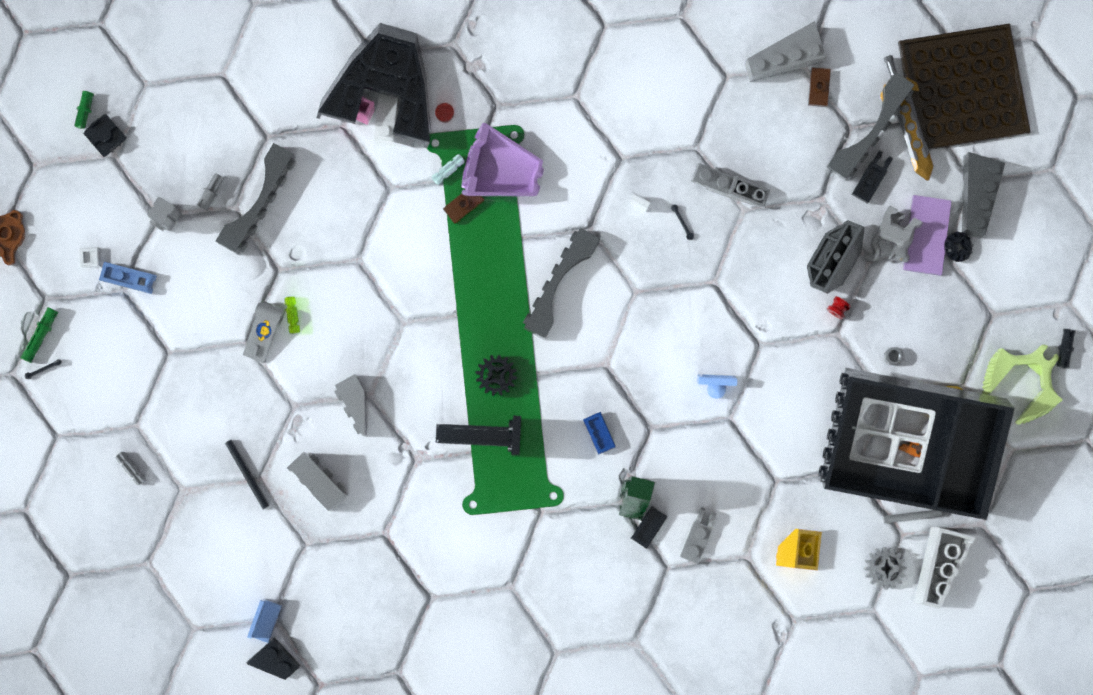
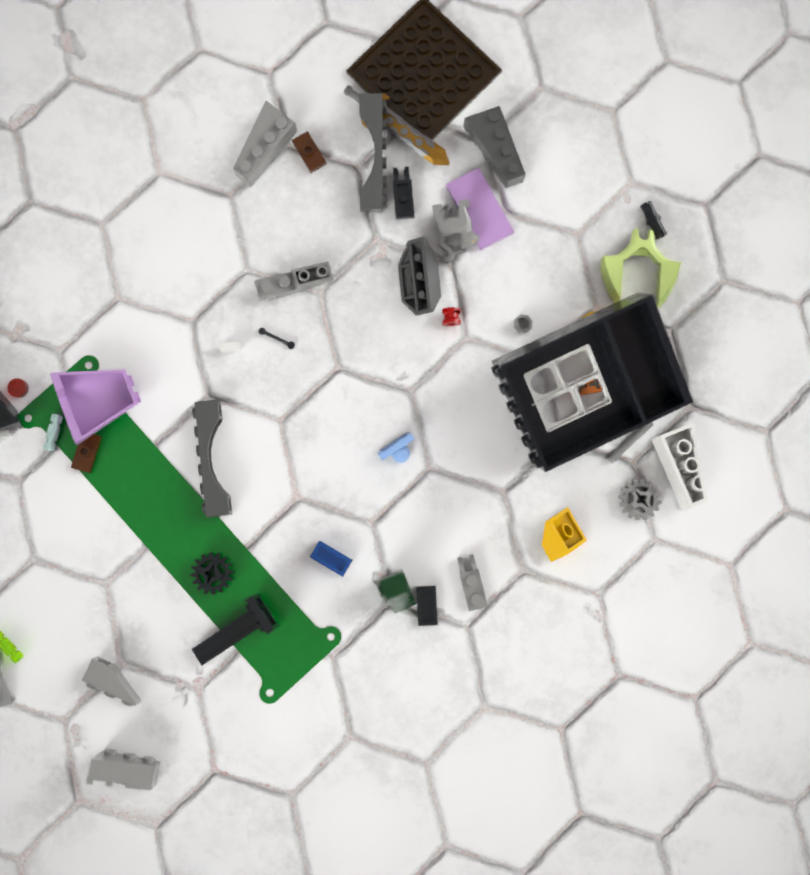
camera: 35 degrees left, 0 degrees up
(247, 475) = (63, 807): black bar -> none
(952, 250) = (507, 205): black gear -> none

